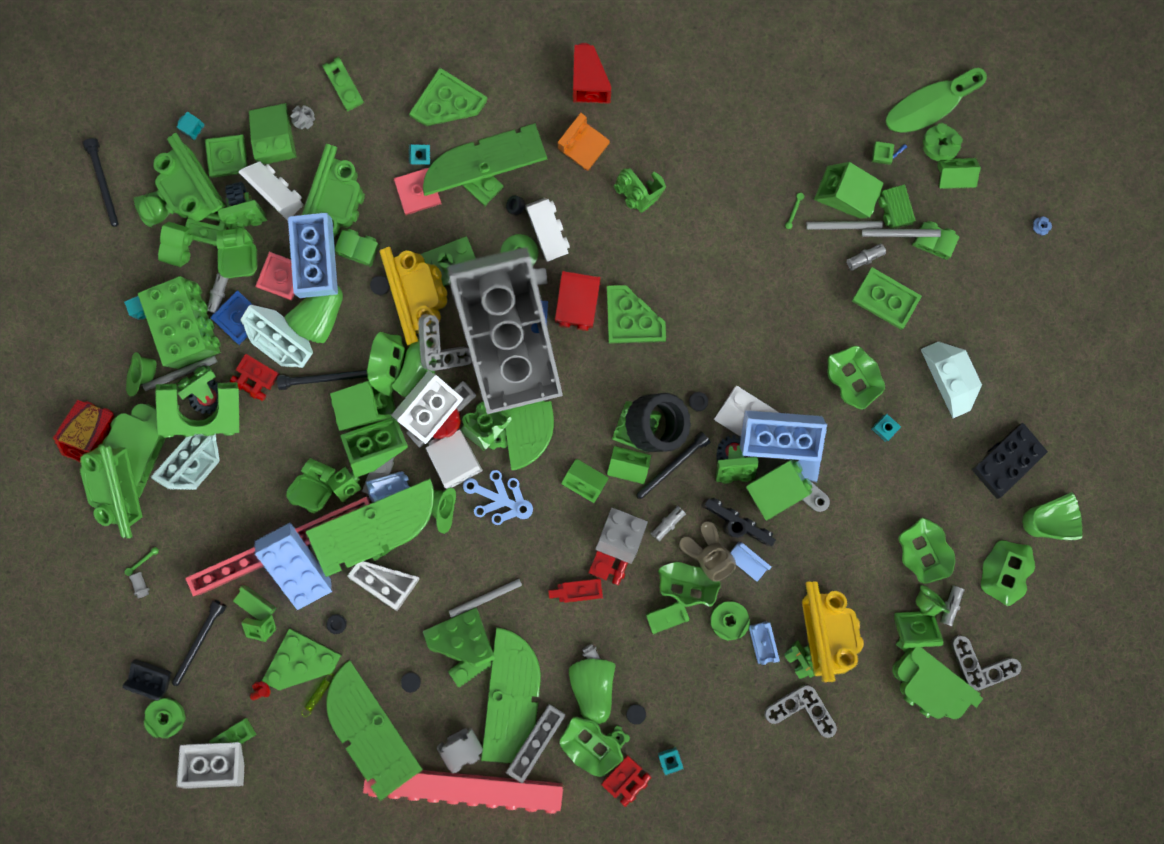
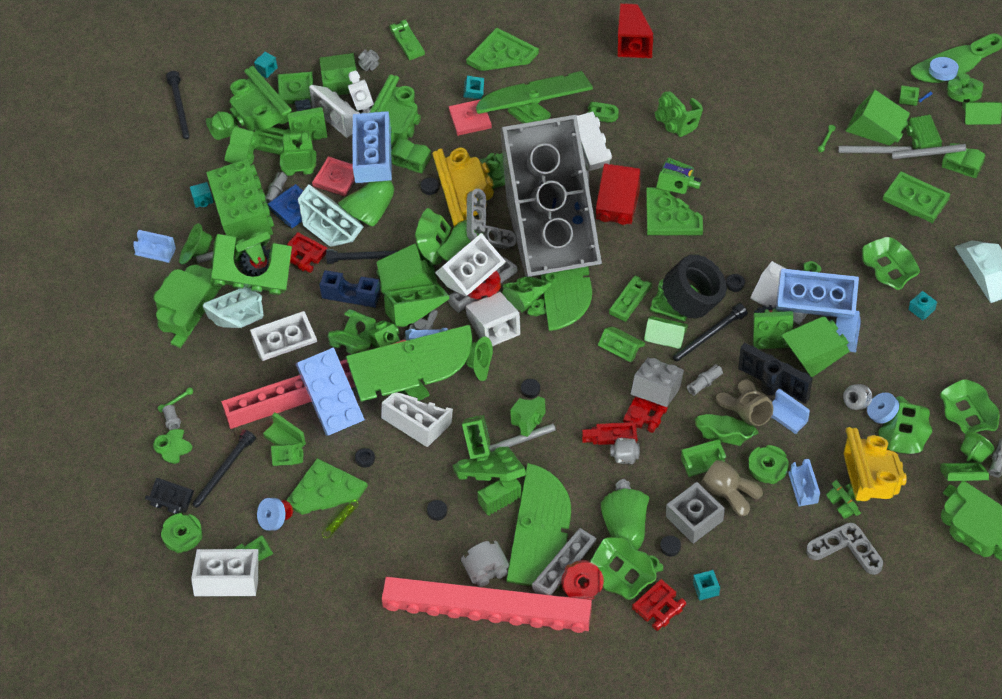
camera: 10 degrees right, 30 degrees down
(83, 430) = (134, 291): slope -> none
(97, 376) = (154, 246): none -> light blue hinge
(111, 487) = (158, 323): bright green brick -> none
(147, 617) = (175, 446): none -> bright green plate
(242, 494) = (283, 336): none -> white slope
(249, 698) = (271, 514): none -> light blue piece
(296, 171) = (360, 93): none -> white piece
(305, 427) = (336, 288): none -> dark blue arch
(373, 738) = (392, 548): bright green door -> none
(444, 605) = (475, 434): none -> bright green torso
(494, 575) = (528, 414): none -> bright green brick
(495, 537) = (530, 388): none -> black tile
(501, 499) = (536, 355): light blue plant -> none
(553, 765) = (574, 572): none -> red plate
(565, 183) = (607, 112): none -> bright green plate
(583, 143) = (623, 82): orange bracket -> none
(591, 613) = (625, 450): none -> light grey head
(592, 426) = (630, 298): none -> bright green plate
(639, 273) = (677, 177): none -> bright green torso
(659, 684) = (695, 512): none -> light grey brick
(688, 649) = (724, 481): none -> dark tan piece
(774, 380) = (811, 266): none -> bright green plate
(811, 500) = (850, 361): light grey plate -> none
(818, 543) = (857, 396): none -> light grey head
(850, 558) = (883, 408): none -> light blue piece
(851, 569) = (906, 442): none -> bright green piece
(866, 256) = (892, 173): light grey pin -> none
(926, 111) = (943, 68): none -> light blue piece

